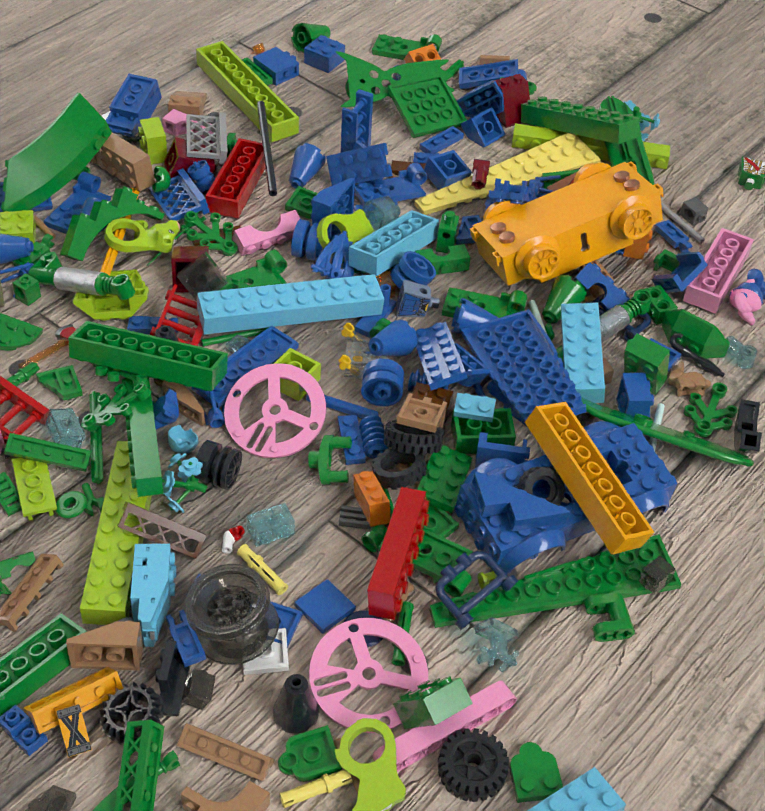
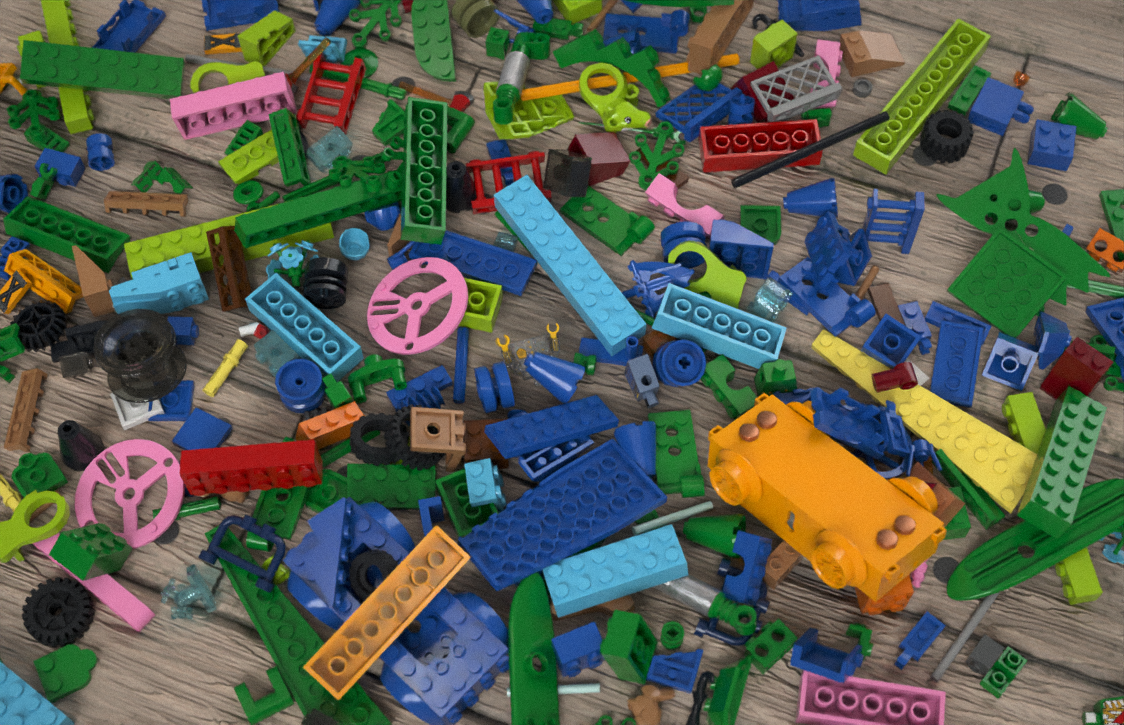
camera: 75 degrees right, 15 degrees up
(230, 501) = (304, 327): none -> medium azure brick
(290, 90) = (947, 124): none -> black tyre
(315, 512) = (300, 385): none -> blue wheel
(339, 487) = (336, 392): none -> green piece
(471, 148) = (956, 363): none -> blue tile
(713, 214) = (1003, 672): none -> green slope

